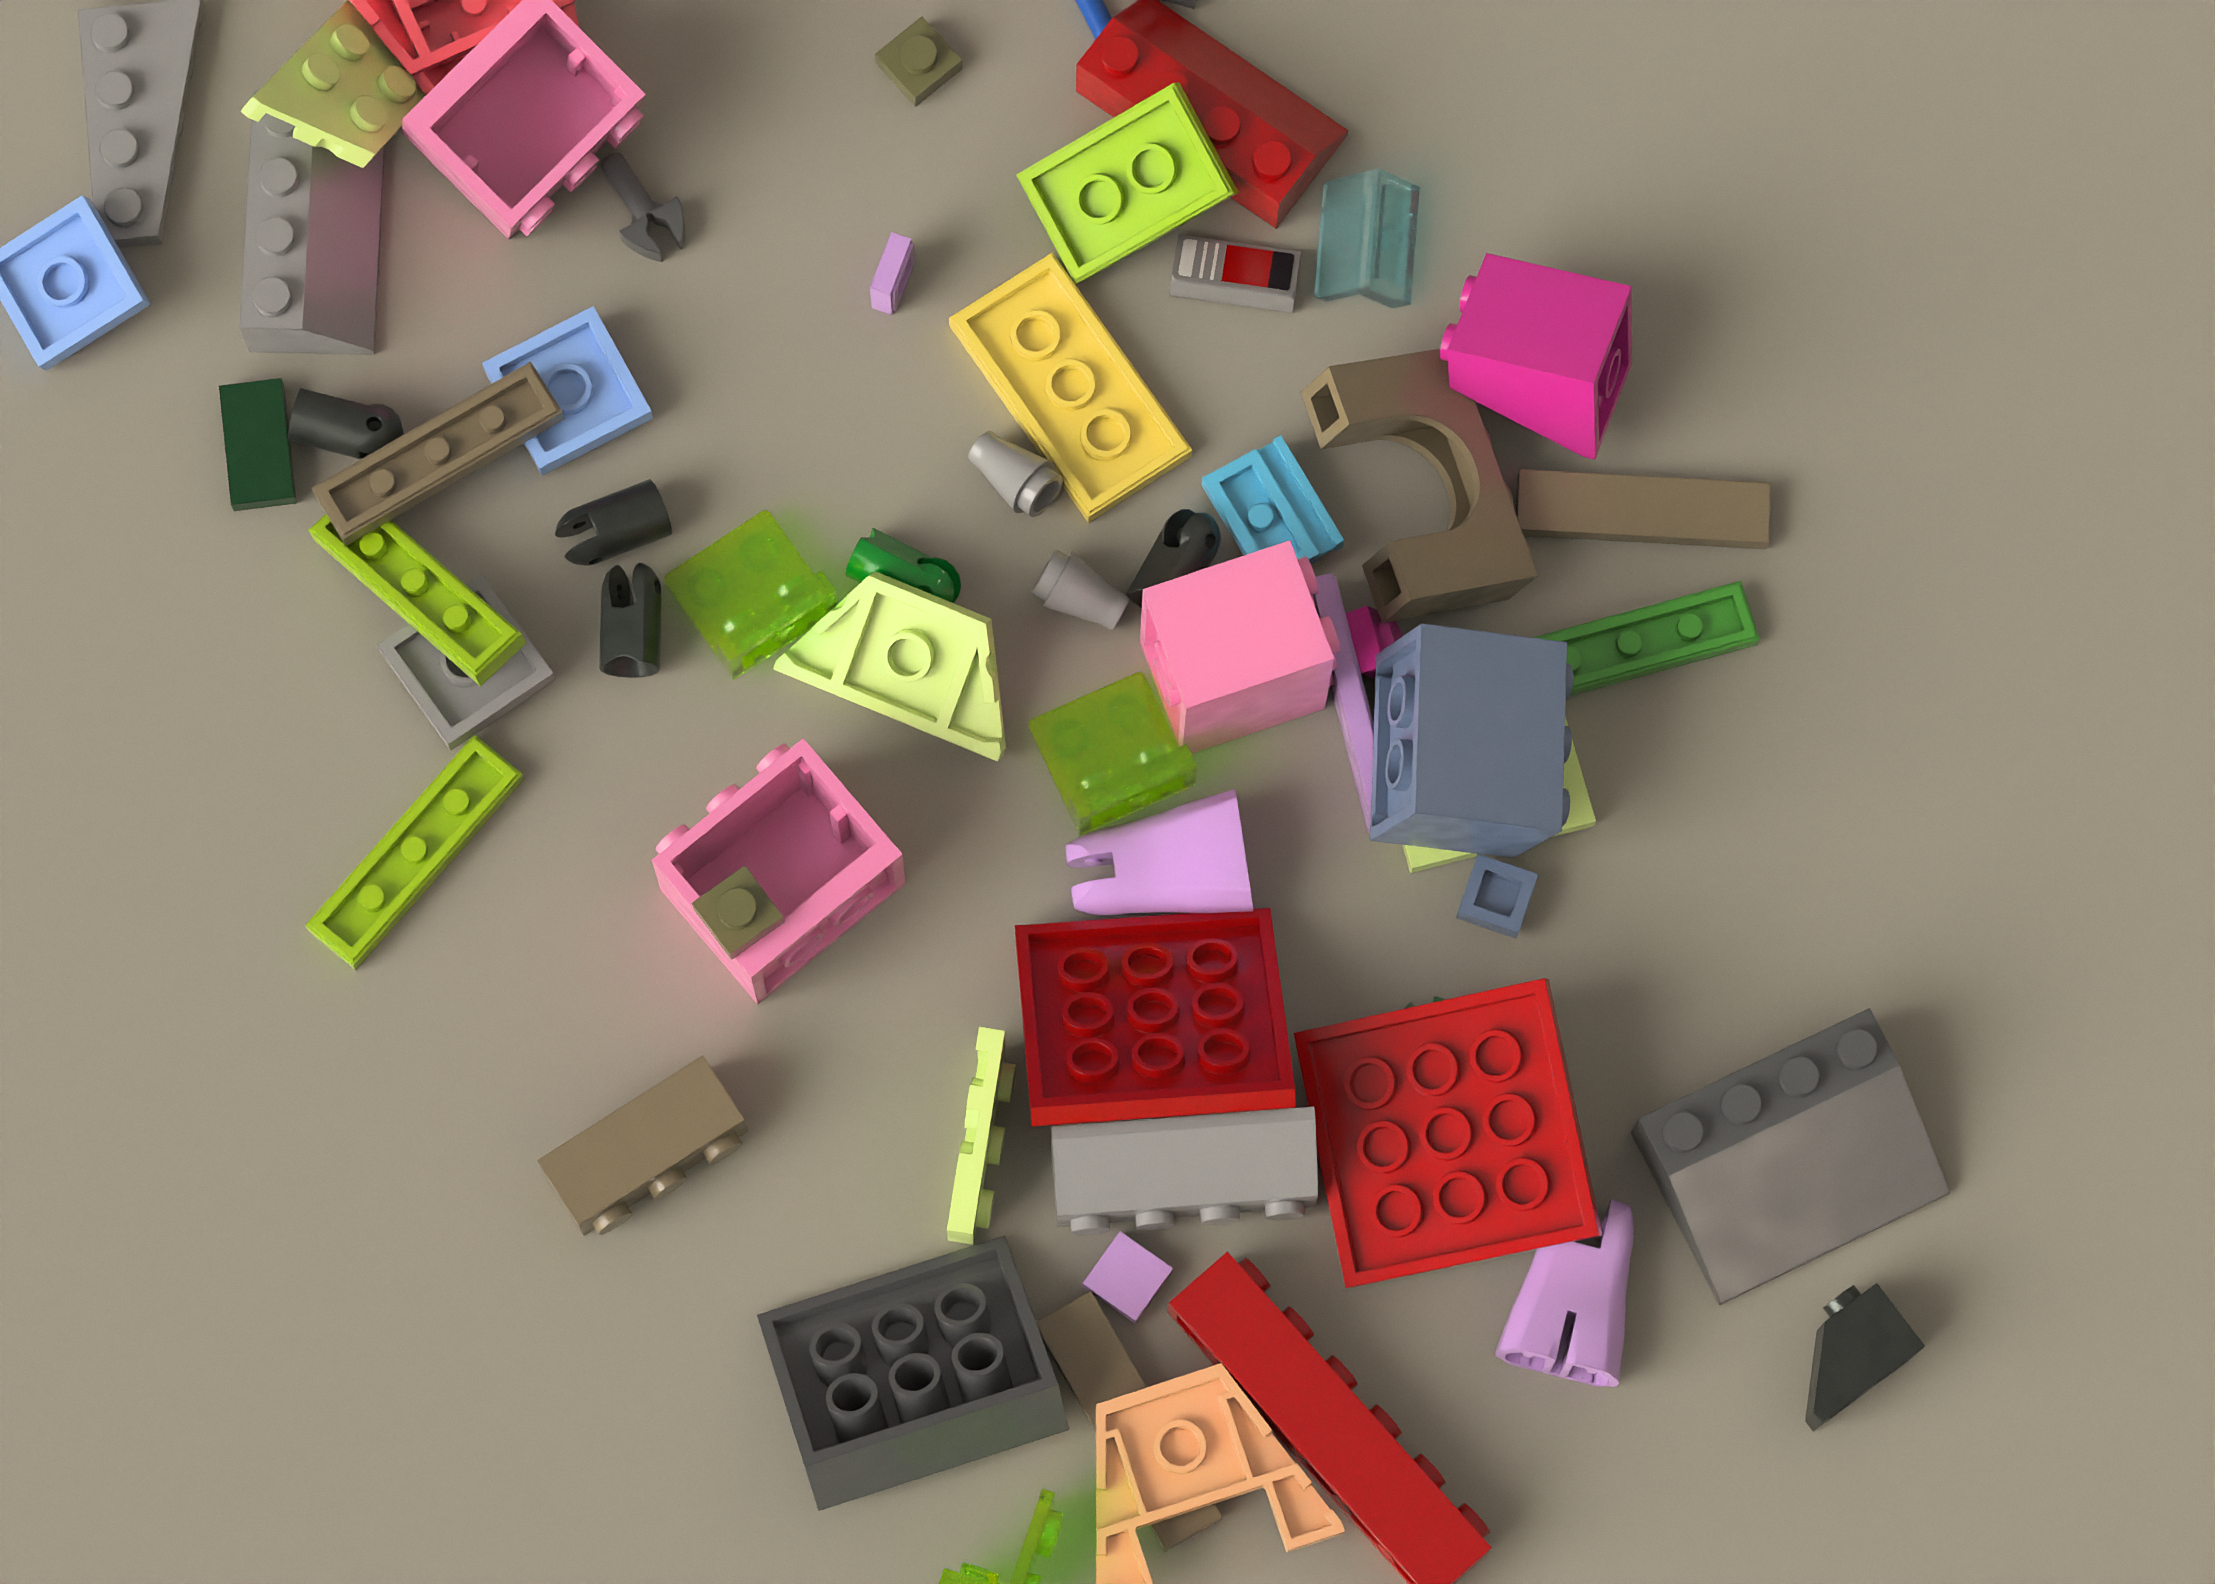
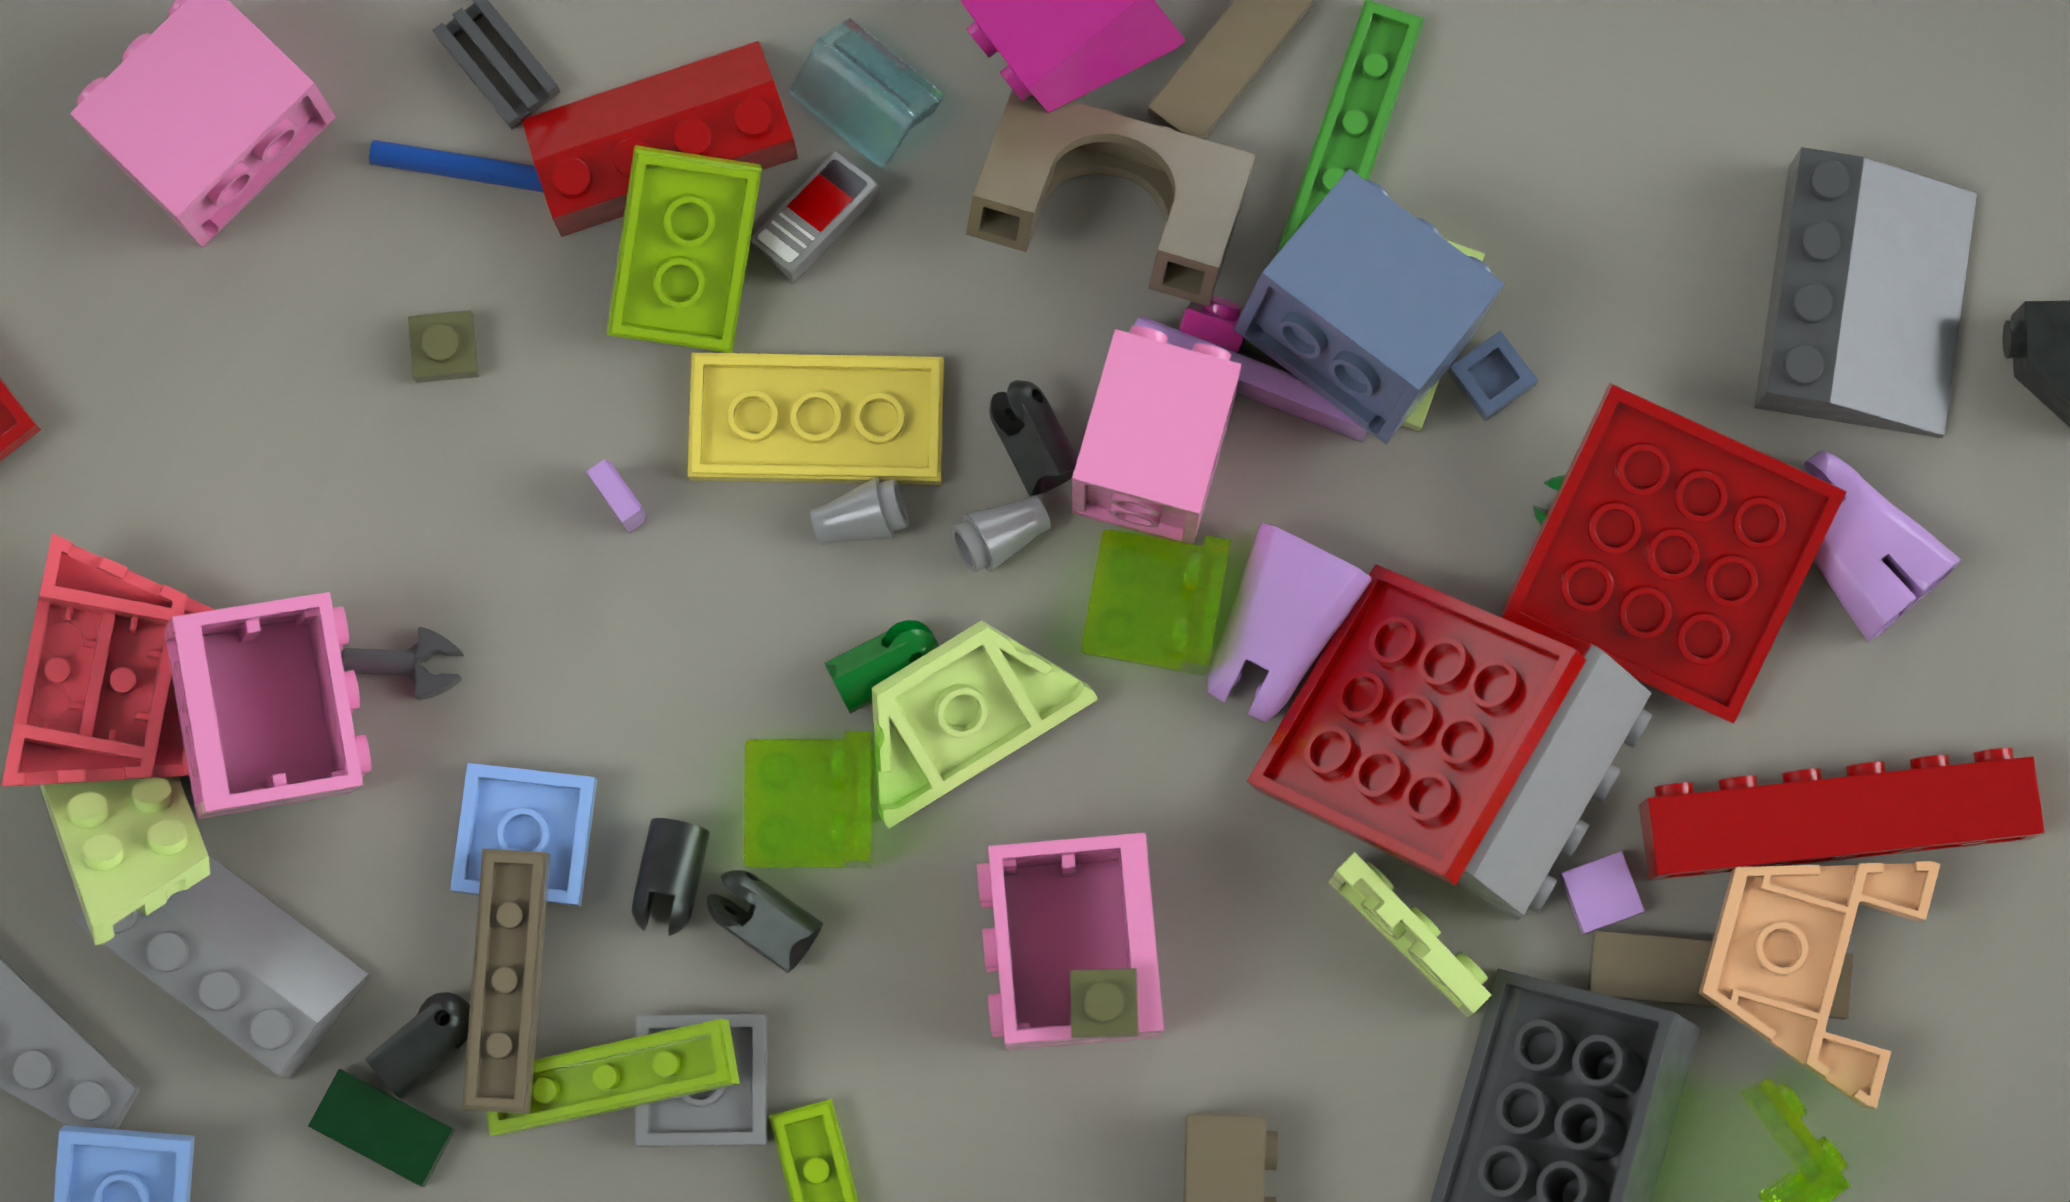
camera: 50 degrees left, 5 degrees up
(1271, 501) = (1043, 329): medium azure plate -> none

